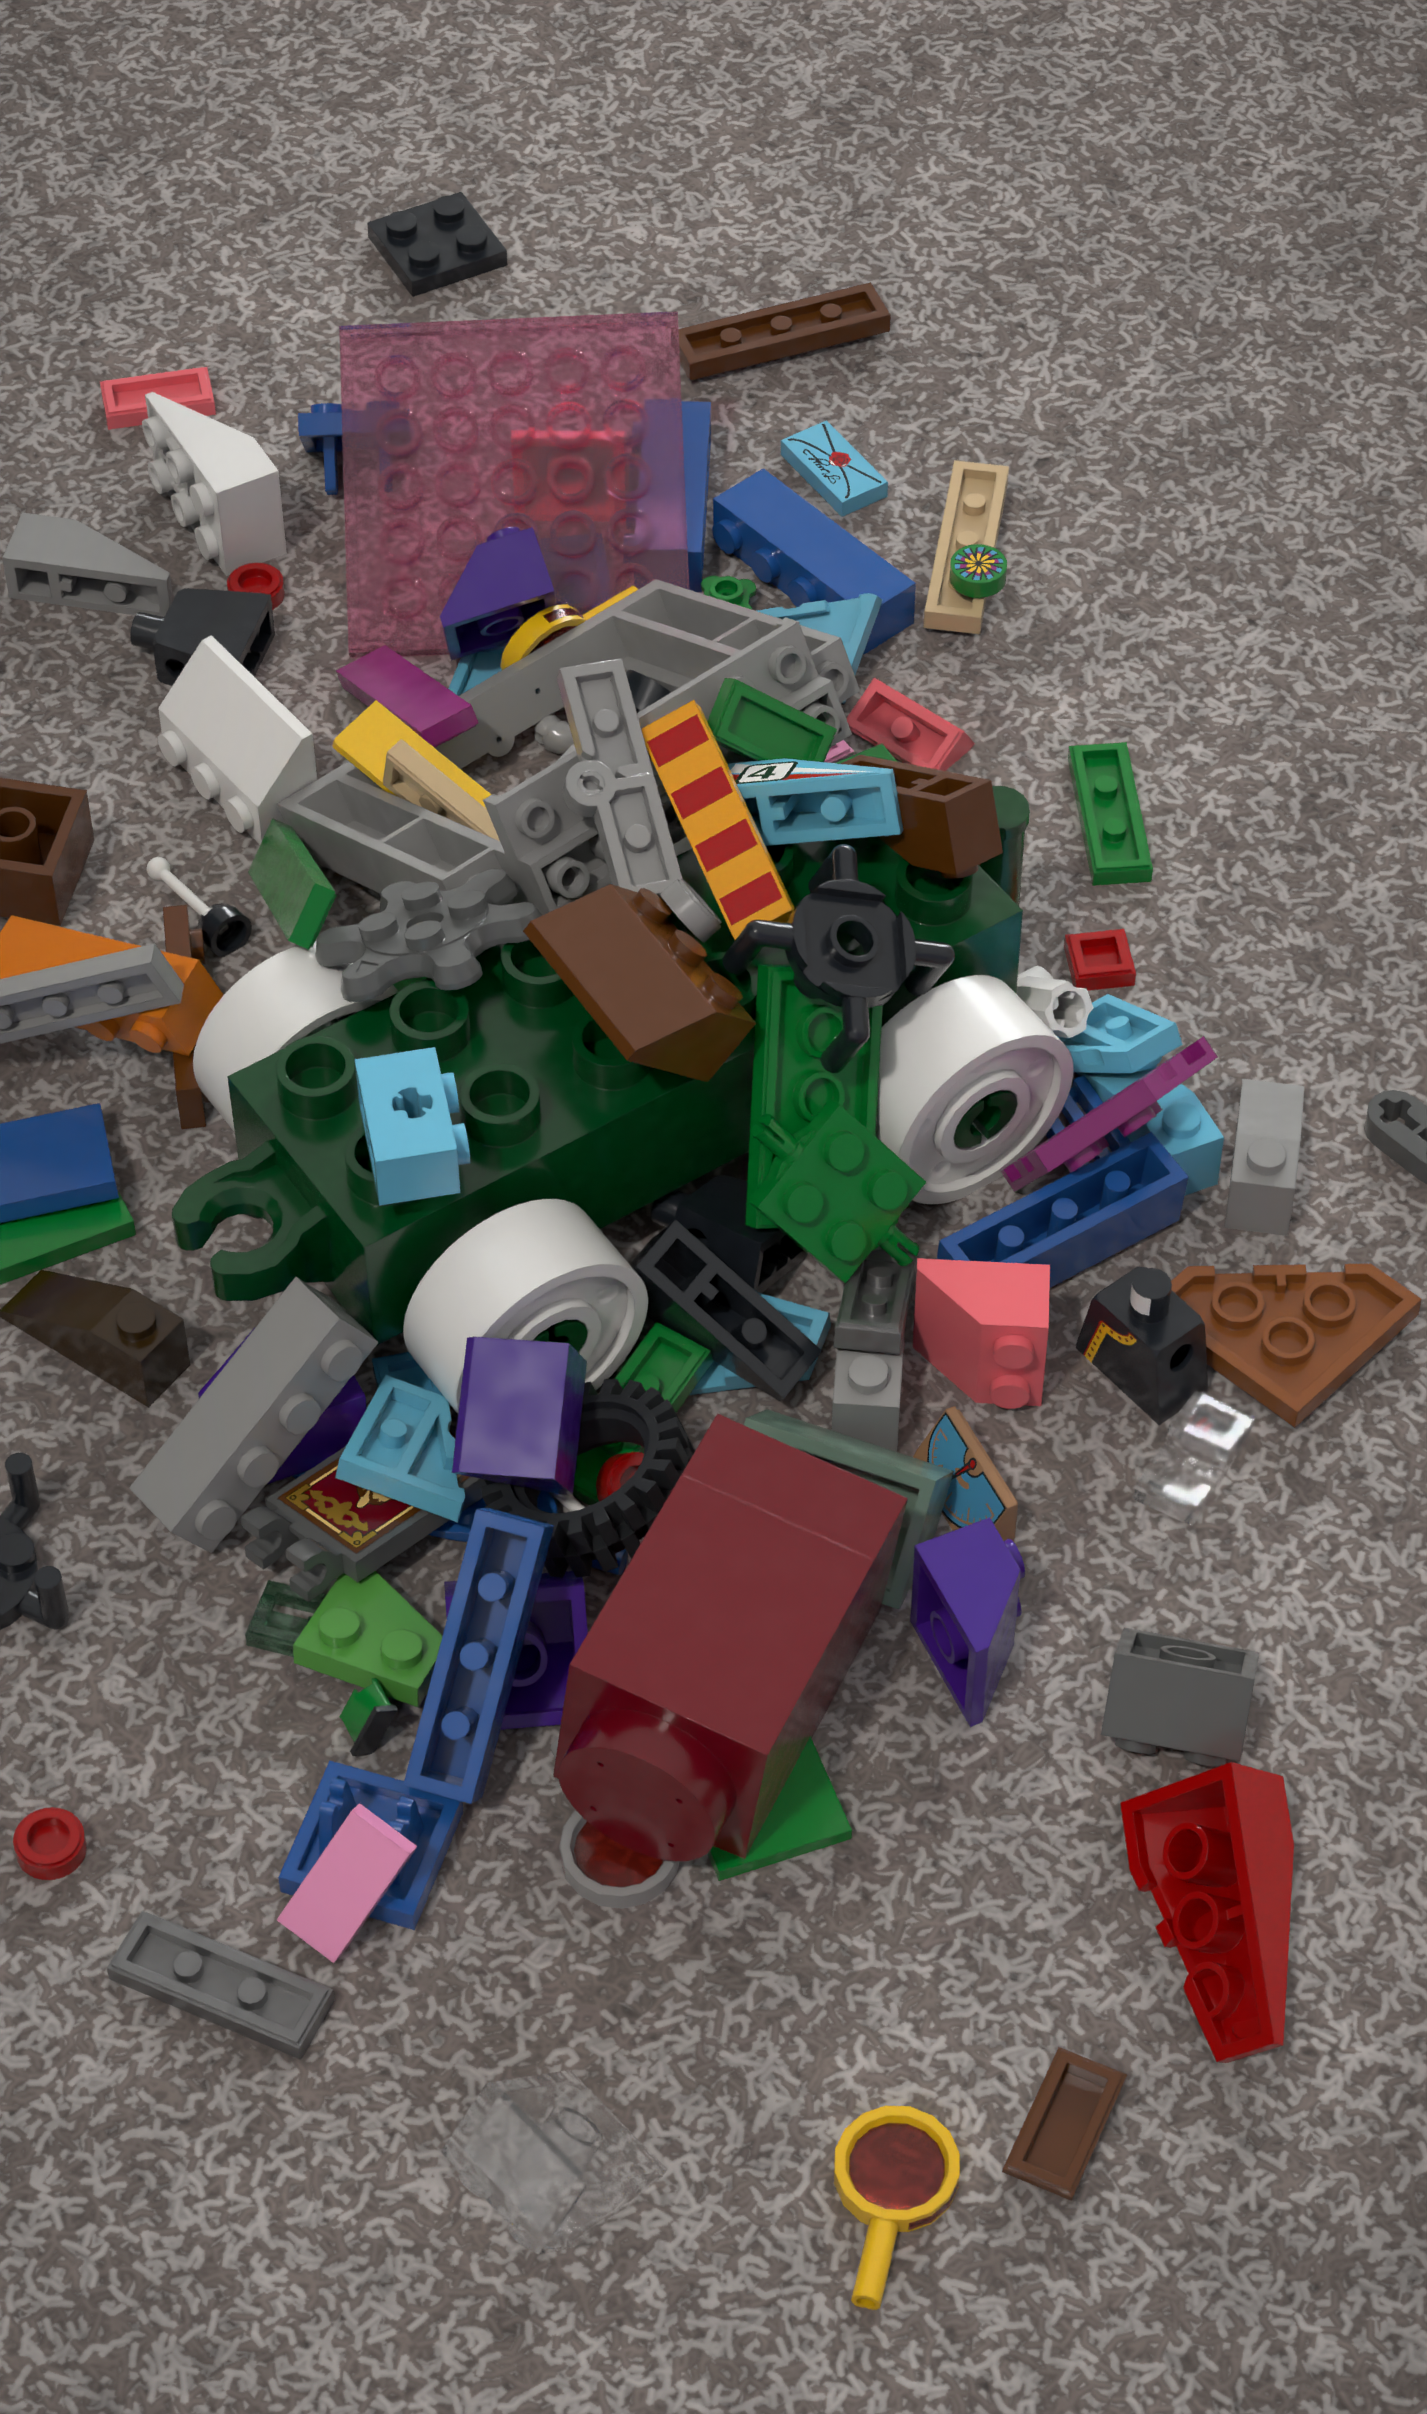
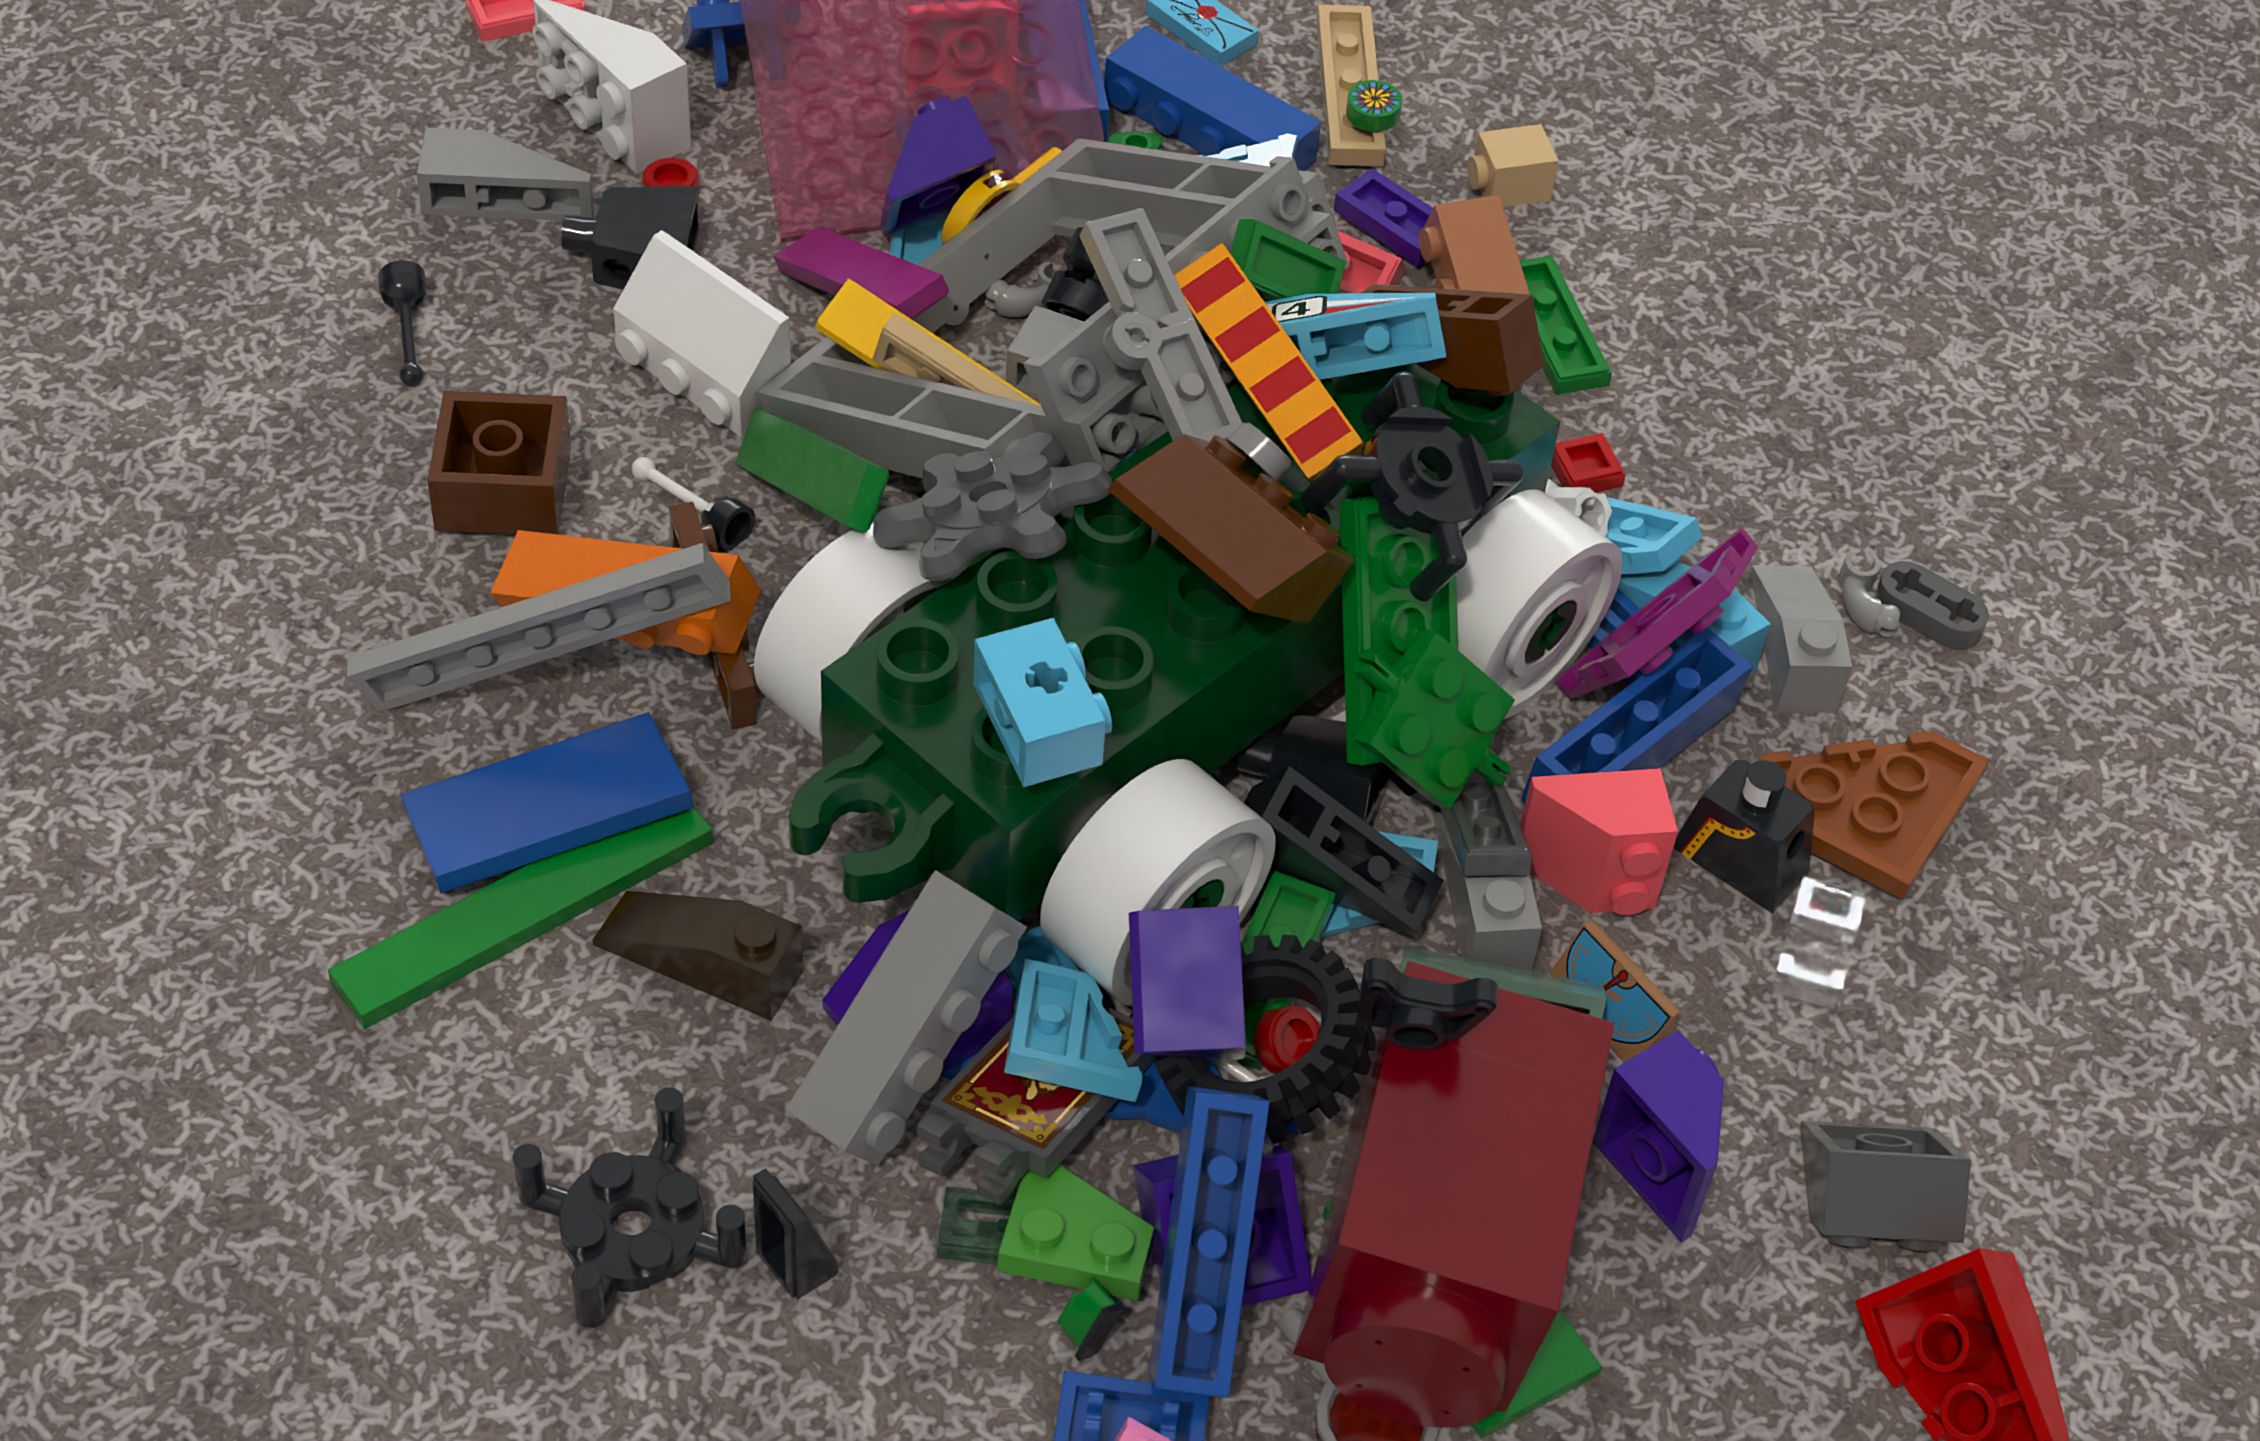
camera: 15 degrees left, 0 degrees up
(105, 1605) = (788, 1239): none -> black slope
(702, 1459) = (1422, 1011): none -> black piece
(973, 688) = (1385, 213): none -> dark purple plate
(1034, 740) = (1472, 247): none -> nougat brick
(1109, 646) = (1514, 164): none -> tan brick
(1344, 1134) = (1863, 608): none -> light grey arm

